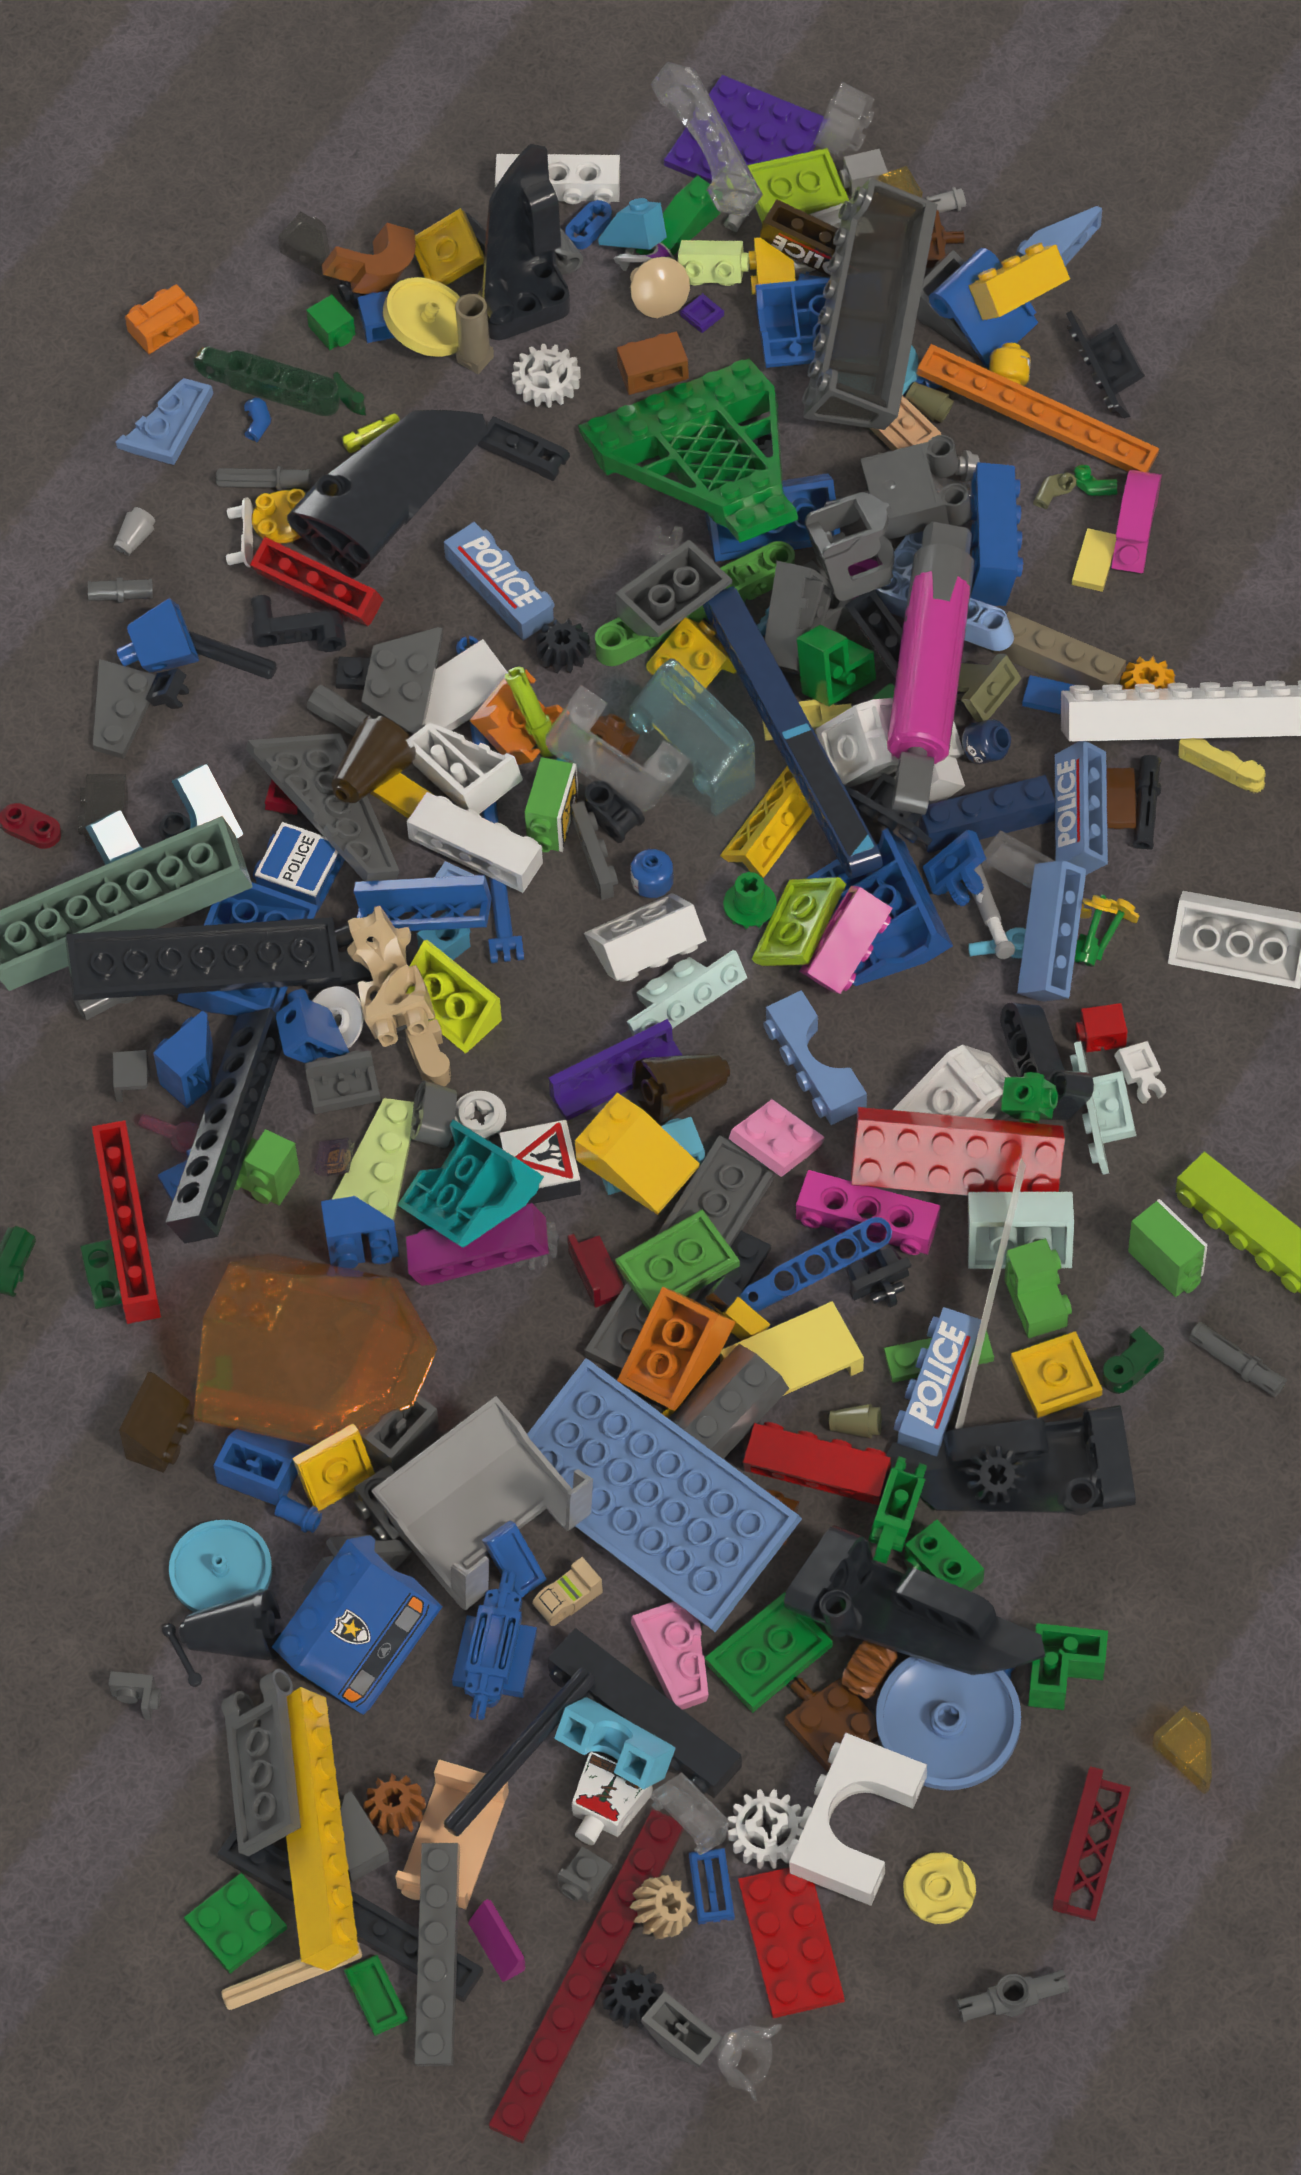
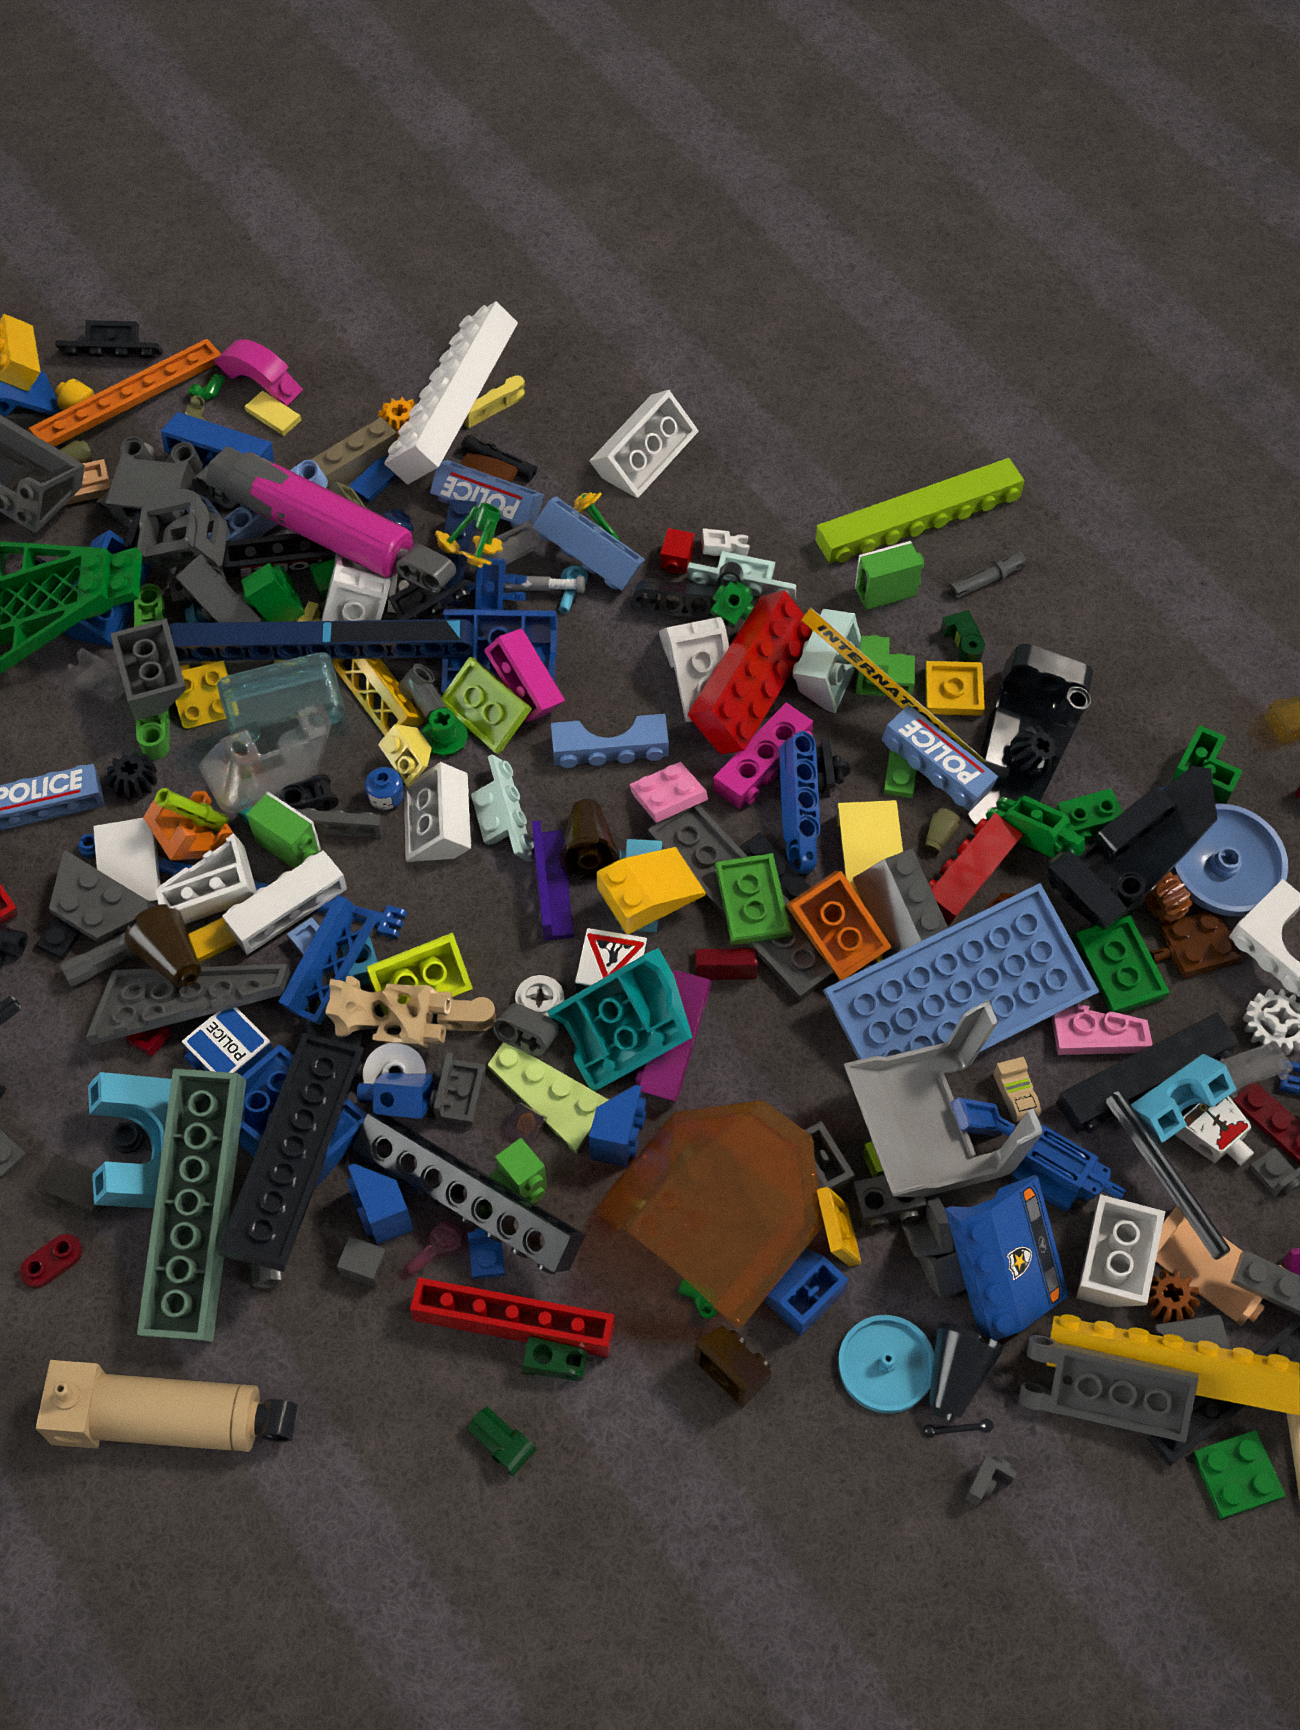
camera: 70 degrees left, 0 degrees up
(298, 1514) = (862, 1276): blue pin -> none
(415, 1731) = (1120, 1253): none -> white slope
(704, 872) = (406, 751): none -> light yellow slope
(726, 1301) = (811, 870): piece -> none
(786, 860) = (418, 688): none -> dark grey piece
(995, 823) = (486, 519): none -> plant

